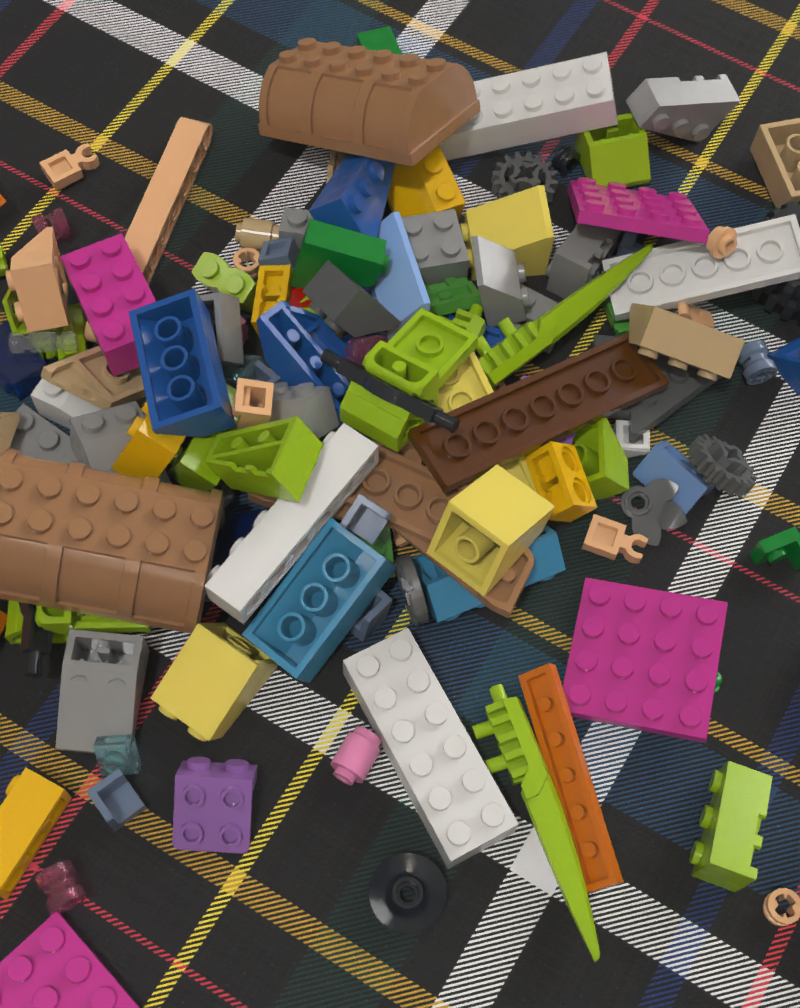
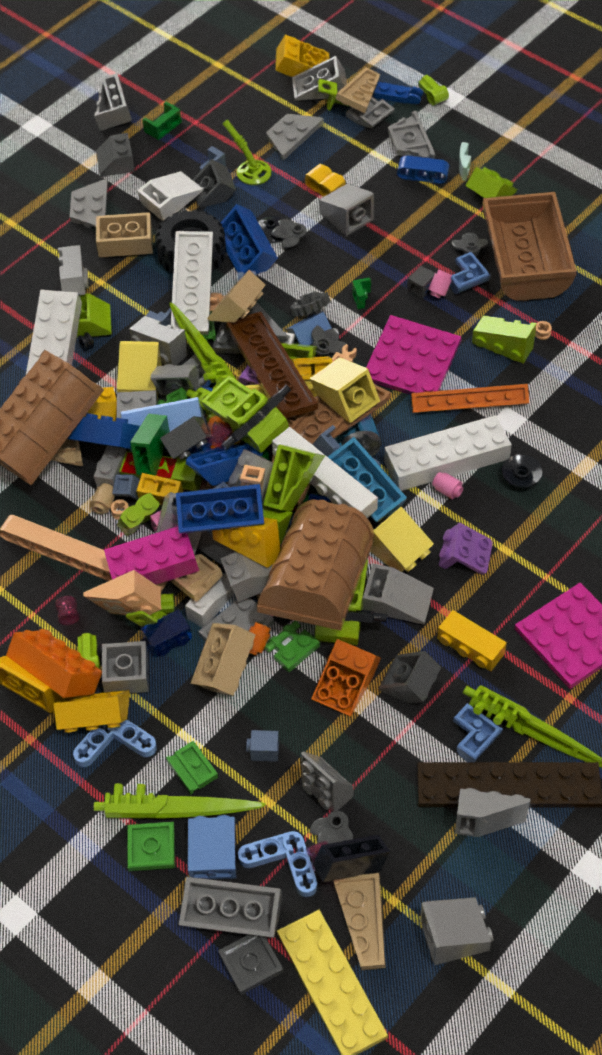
camera: 75 degrees left, 10 degrees down
(42, 342) = (166, 607): clear axle -> none
(60, 887) = (503, 620): clear pink wheel -> none
(66, 169) = (18, 601): light nougat plate -> none
(116, 800) = (458, 595): sand blue panel -> none
(117, 753) = (434, 590): clear light blue plate -> none
(523, 174) = (97, 362): dark grey gear -> none
(527, 766) = (470, 412): lime piece -> none
(636, 210) = (143, 306): dark pink plate -> none
(722, 241) = (185, 265): light nougat plate -> none

